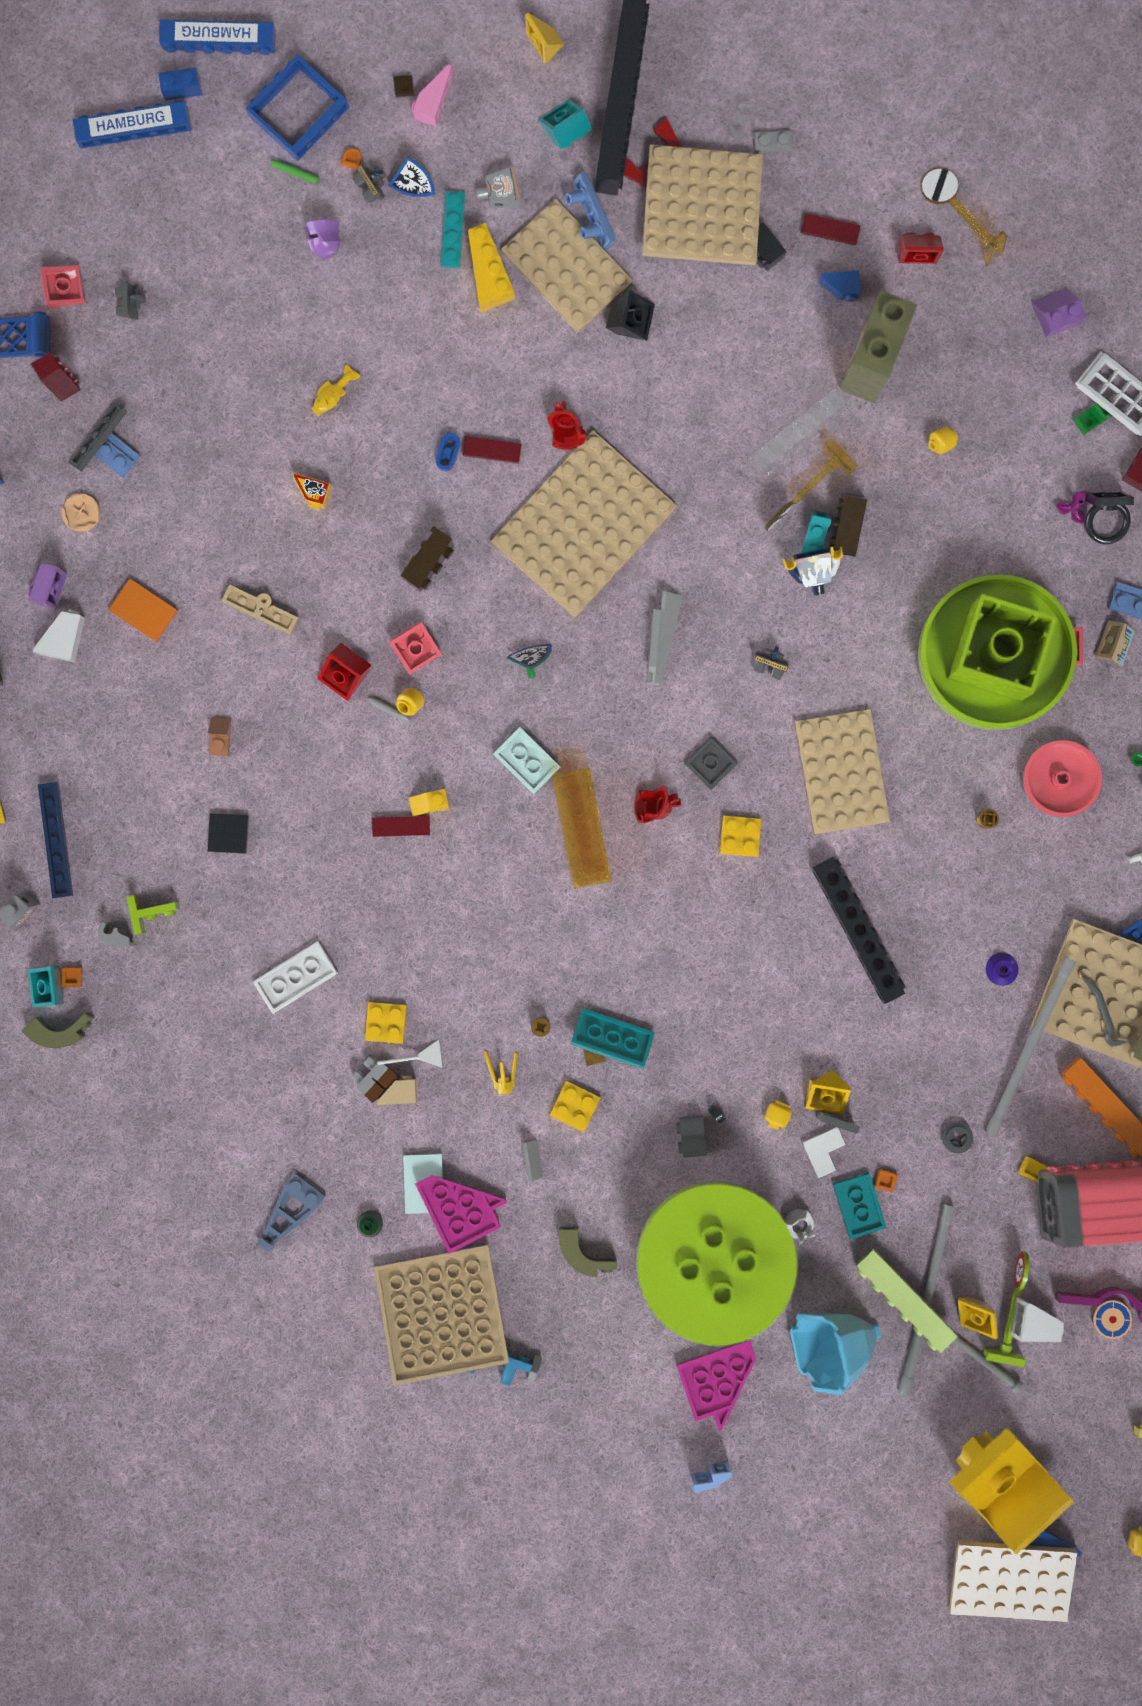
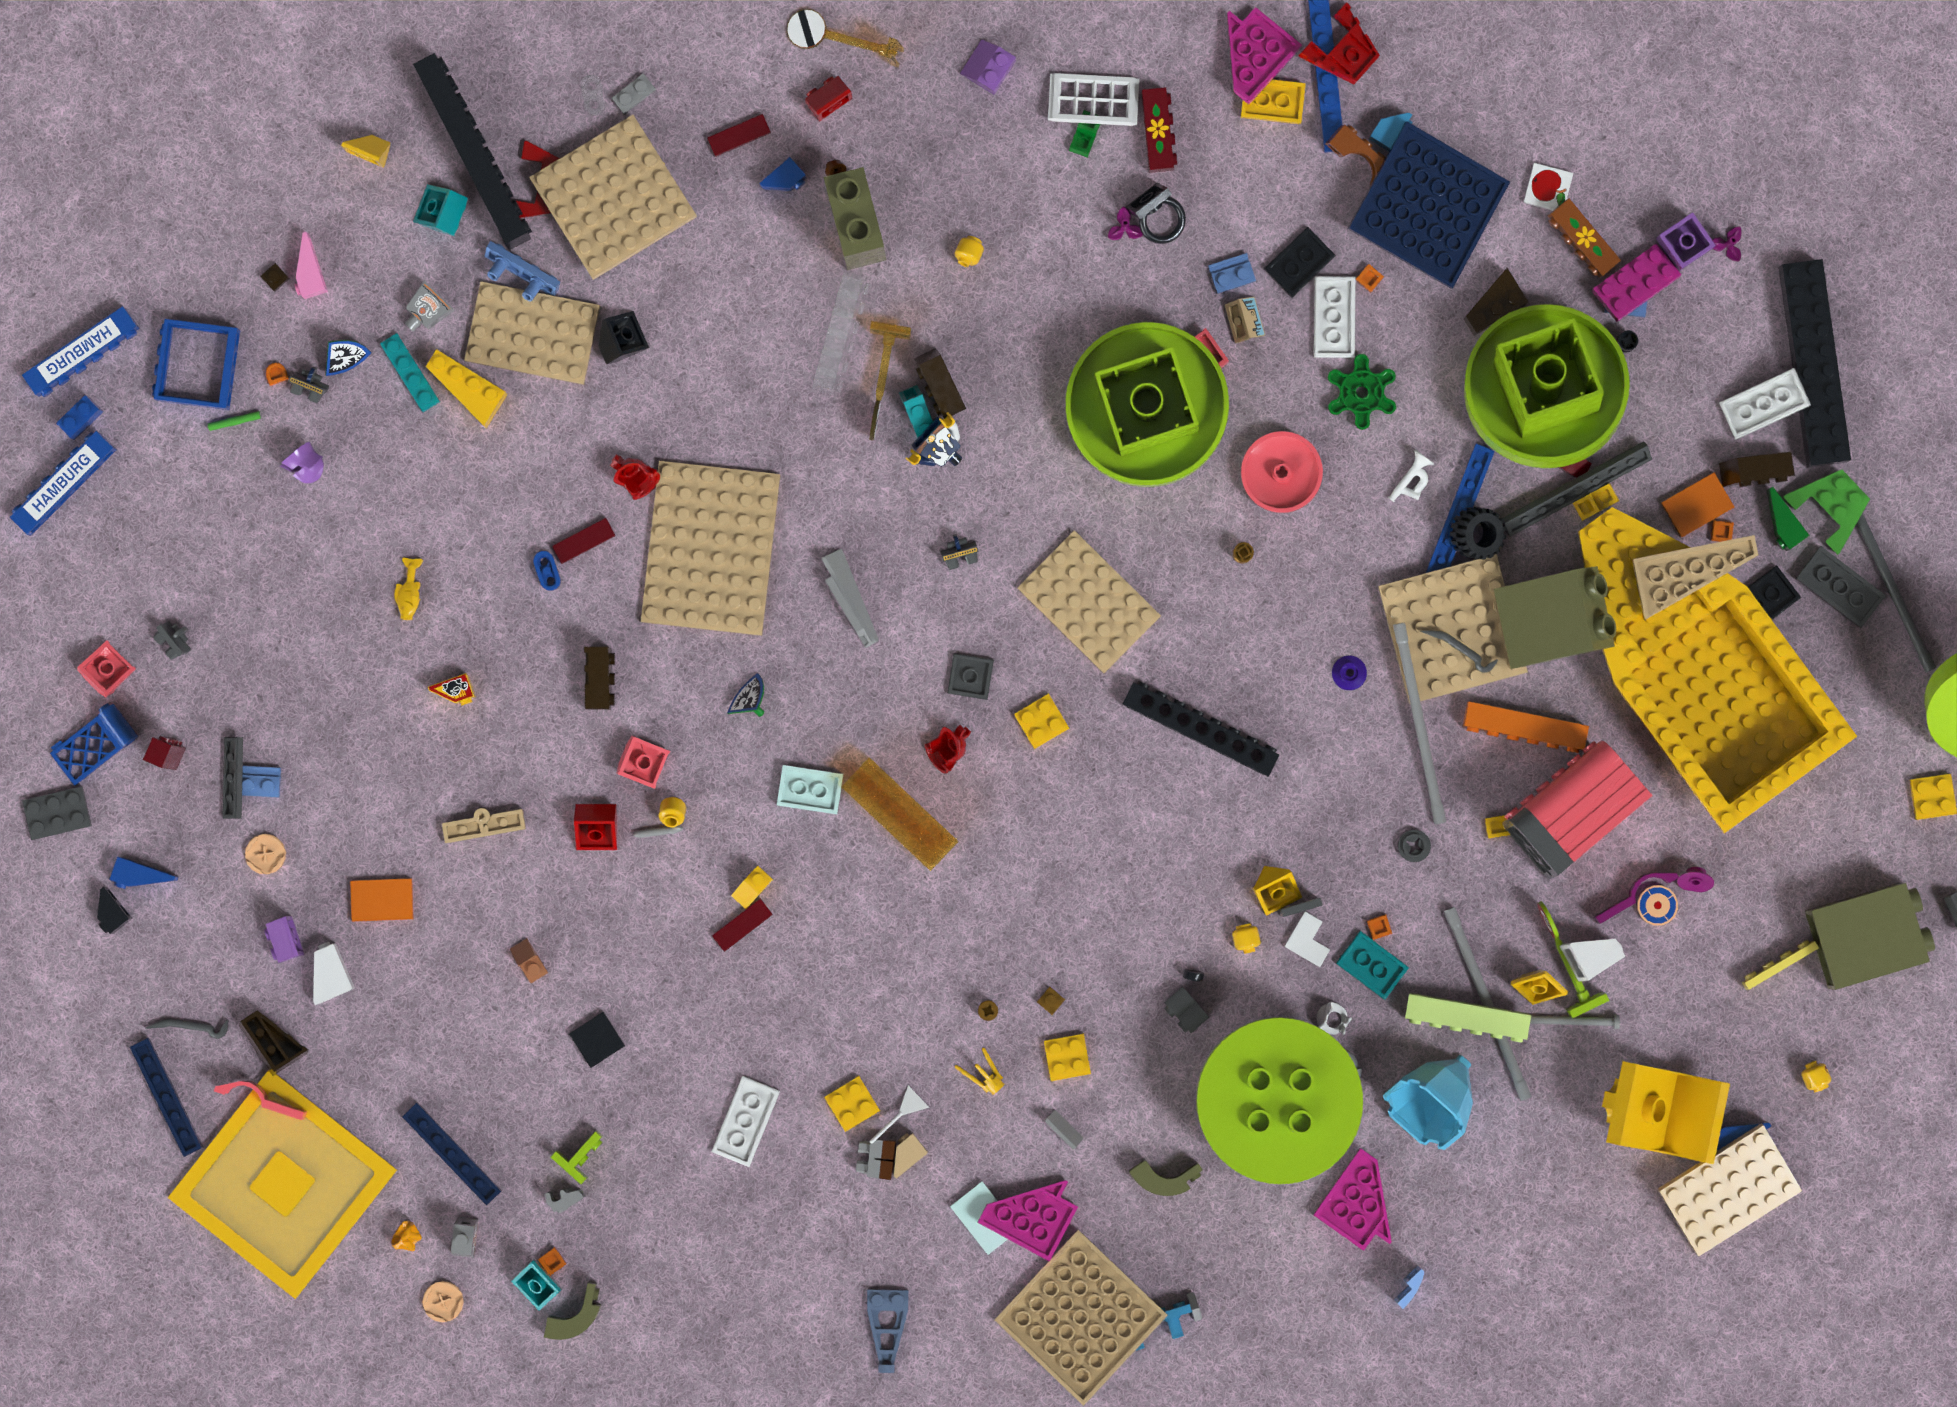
camera: 30 degrees left, 0 degrees up
(367, 1218) = (957, 1284): dark green cone -> none
(612, 1038) = (1057, 975): teal plate -> none
(768, 249) = (698, 193): black slope -> none

